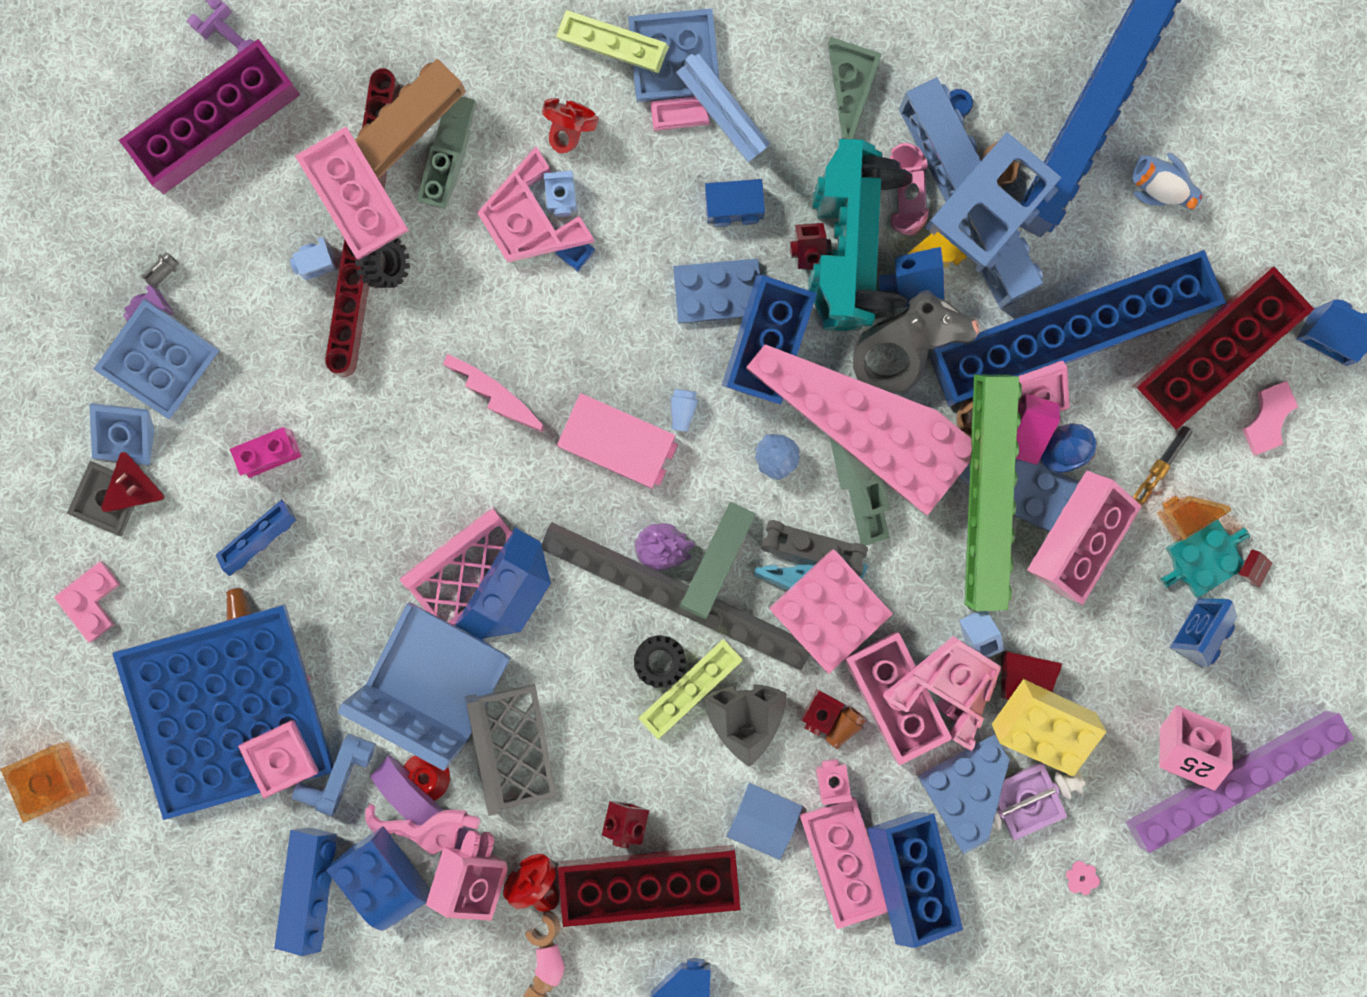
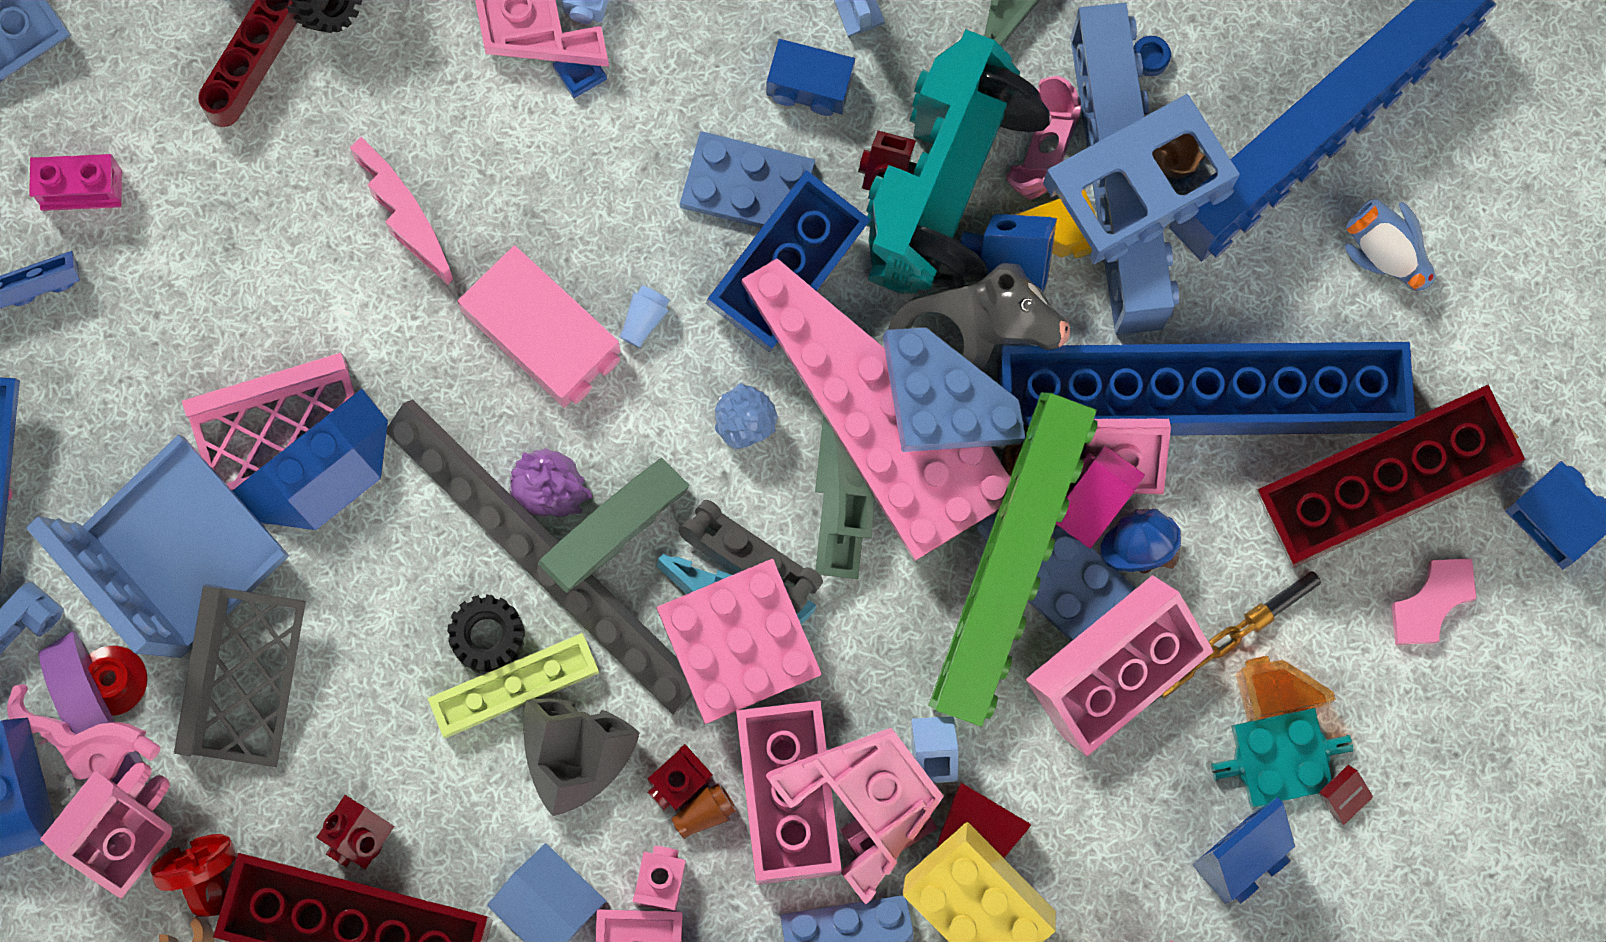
camera: 15 degrees right, 10 degrees down
(911, 400) = (946, 398): none -> medium blue plate

